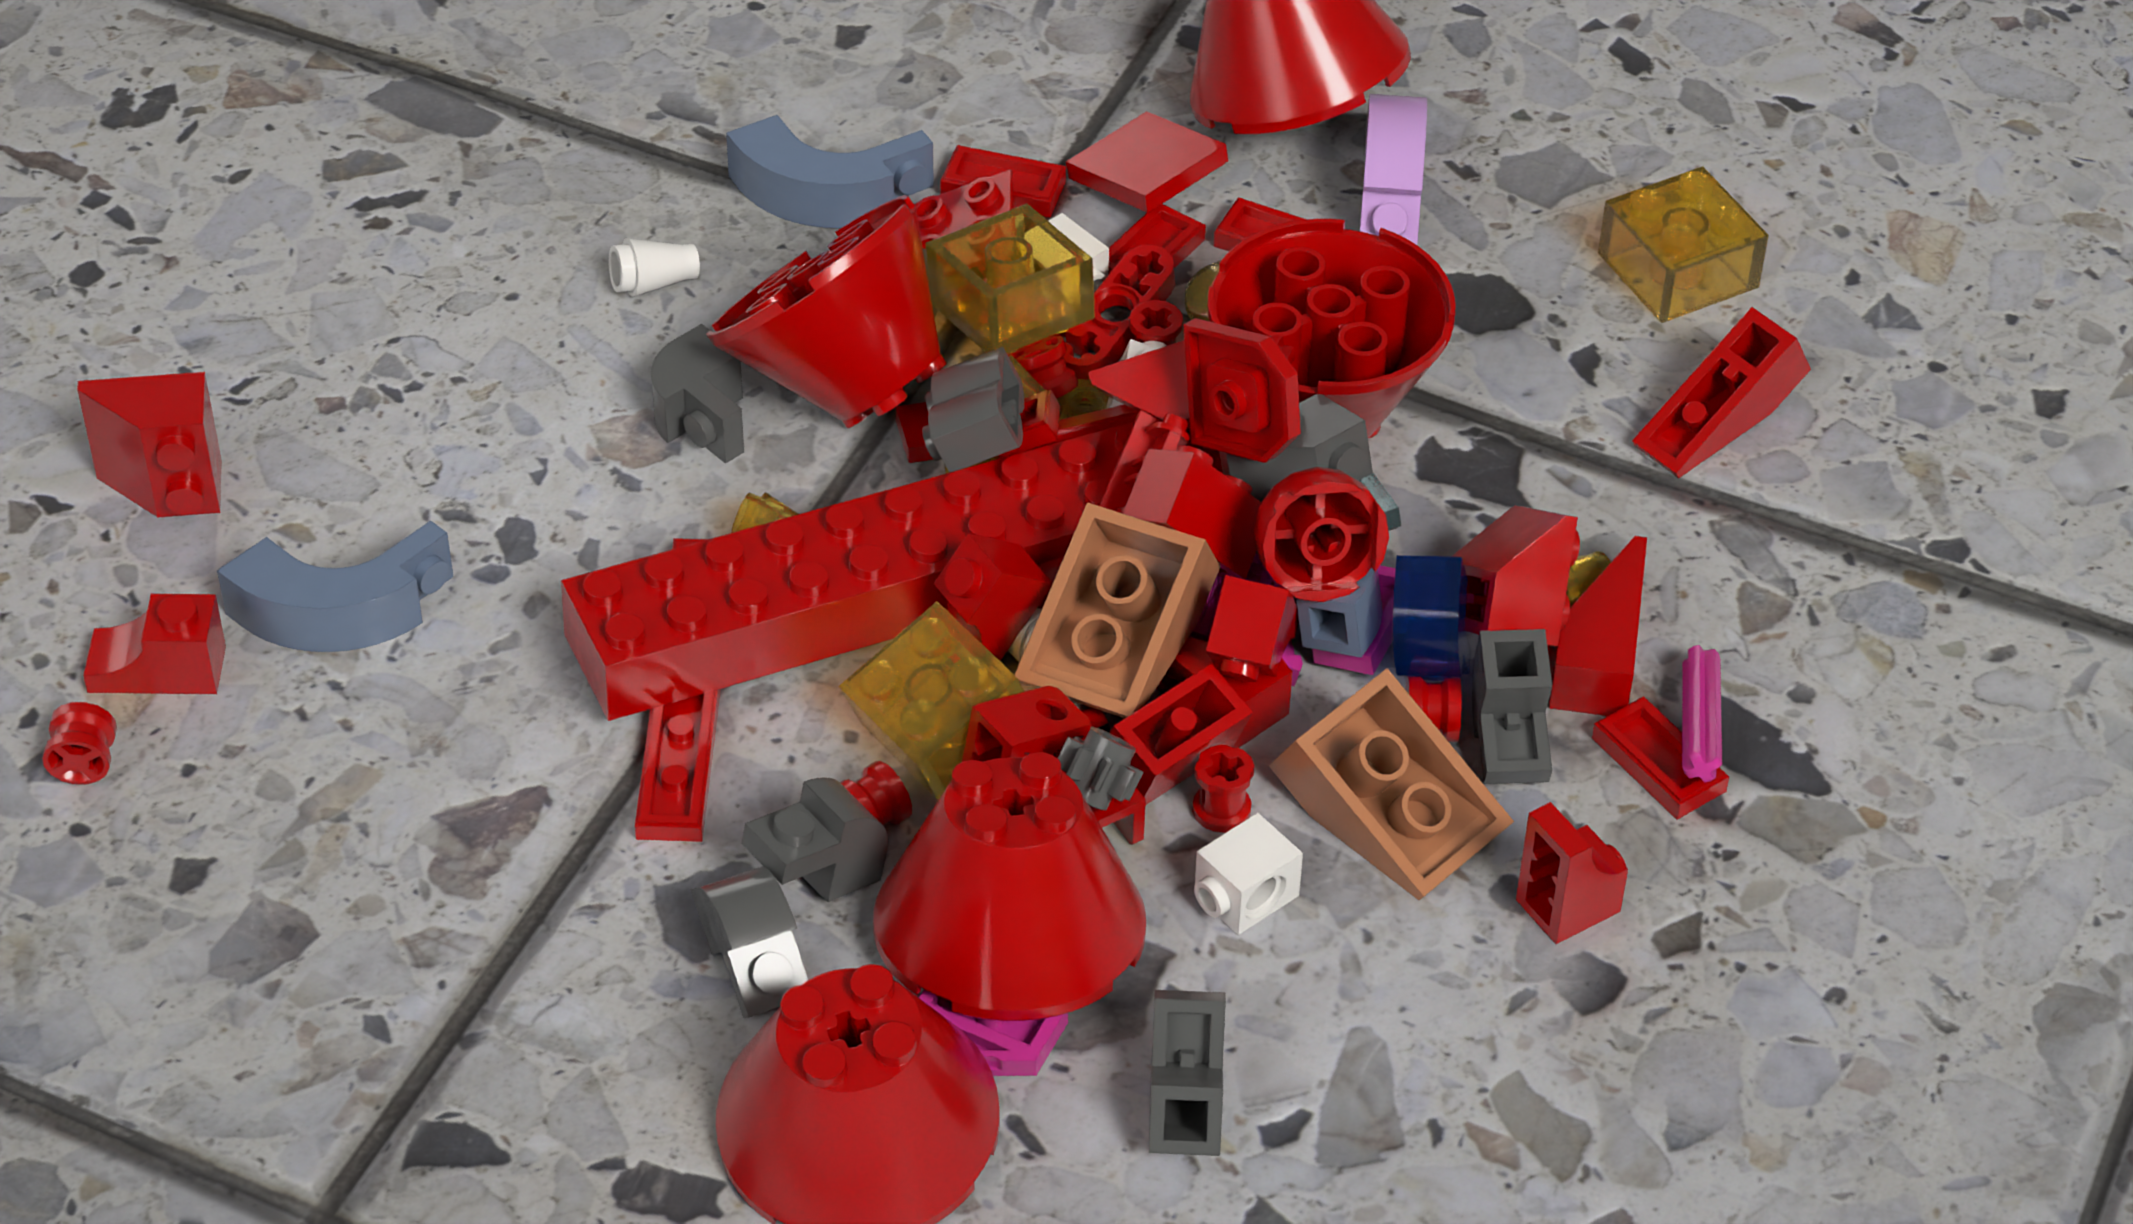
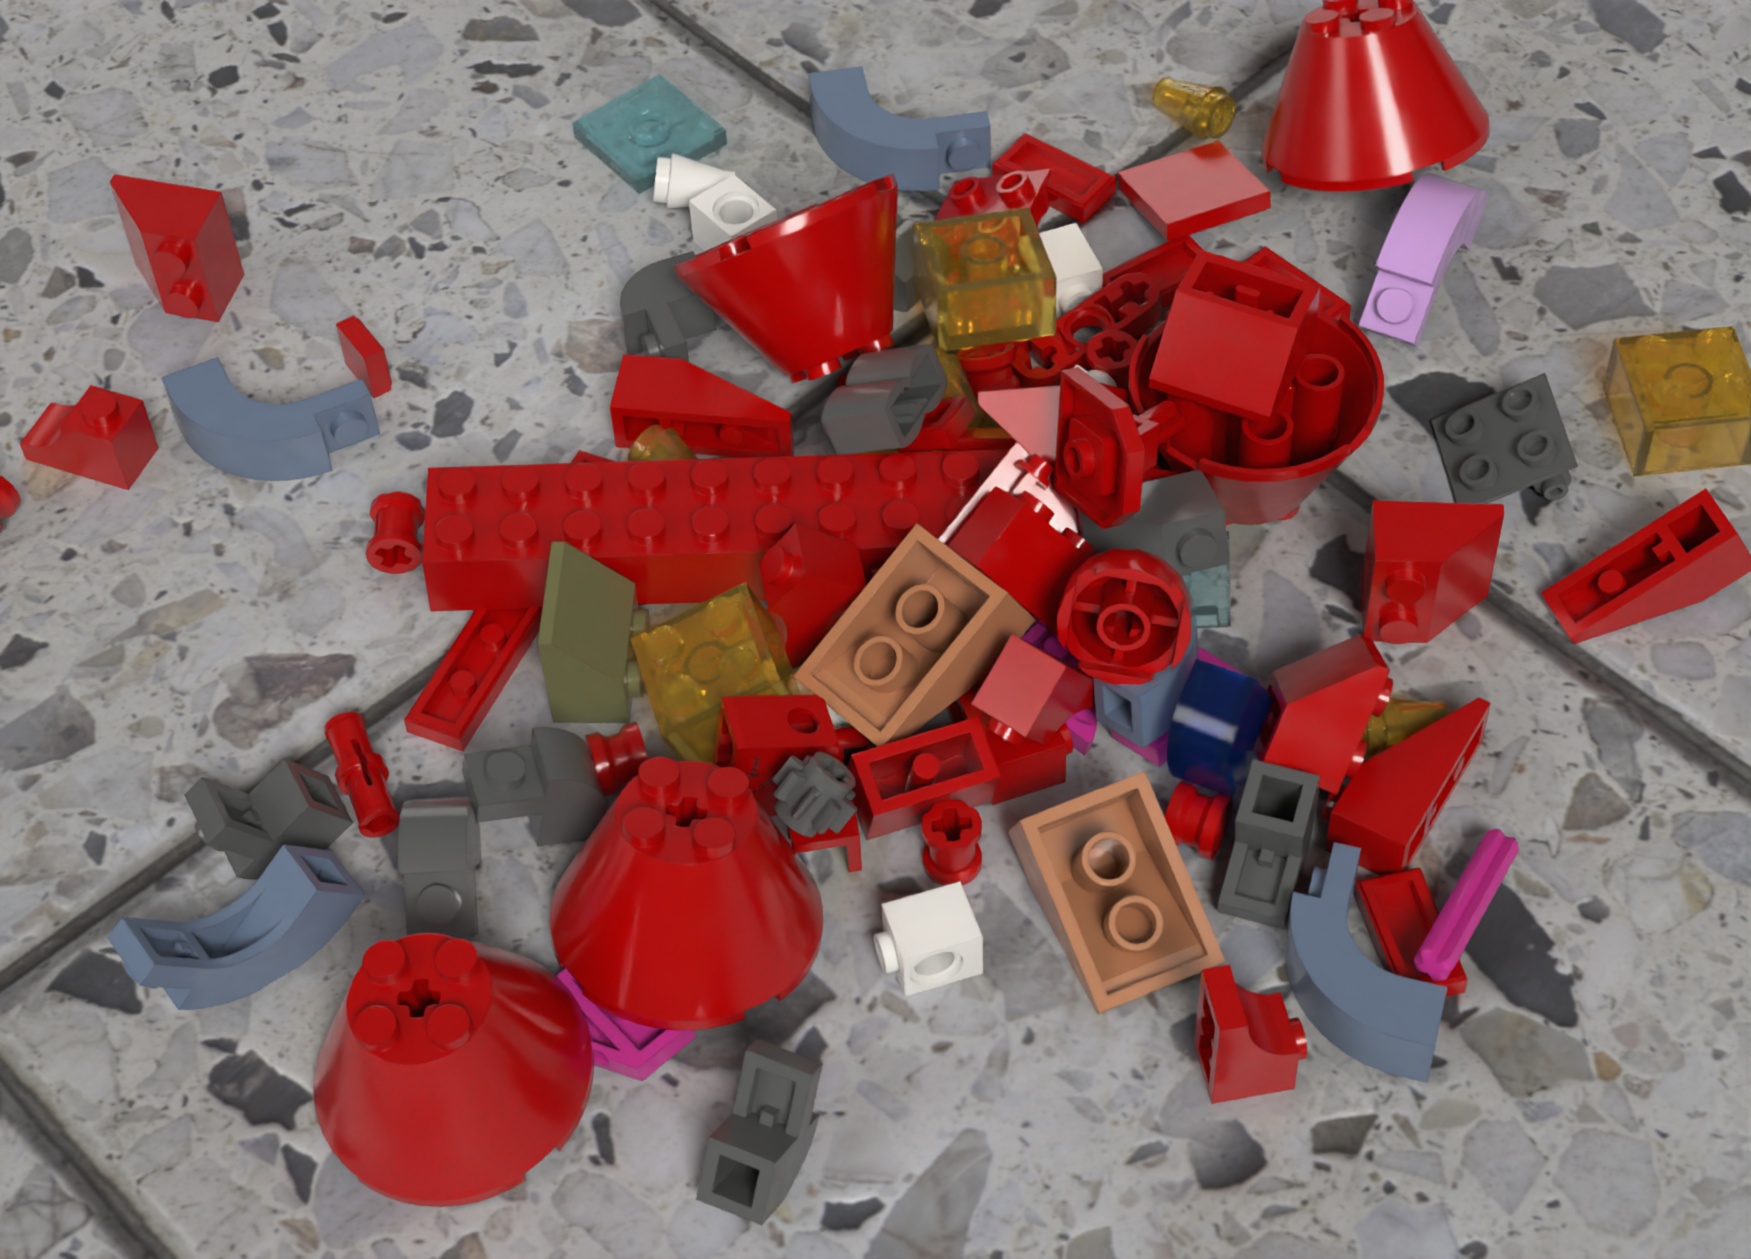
camera: 25 degrees right, 5 degrees up
(405, 500) = (364, 356): none -> red tile
(536, 666) = (395, 542): none -> red bush
(564, 949) = (284, 809): none -> dark grey brick
(574, 226) = (645, 126): none -> clear light blue tile
(602, 1052) = (249, 943): none -> sand blue arch
(622, 884) = (362, 774): none -> red pin
(711, 285) = (727, 212): none -> white brick
(789, 466) = (699, 406): none -> red slope
(792, 702) = (587, 639): none -> olive slope
(1110, 84) = (1196, 106): none -> clear yellow cone
(1309, 264) = (1235, 336): none -> red slope
(1530, 436) = (1426, 566): none -> red slope
(1544, 320) = (1507, 445): none -> dark grey hinge
(1648, 820) = (1347, 997): none -> sand blue arch

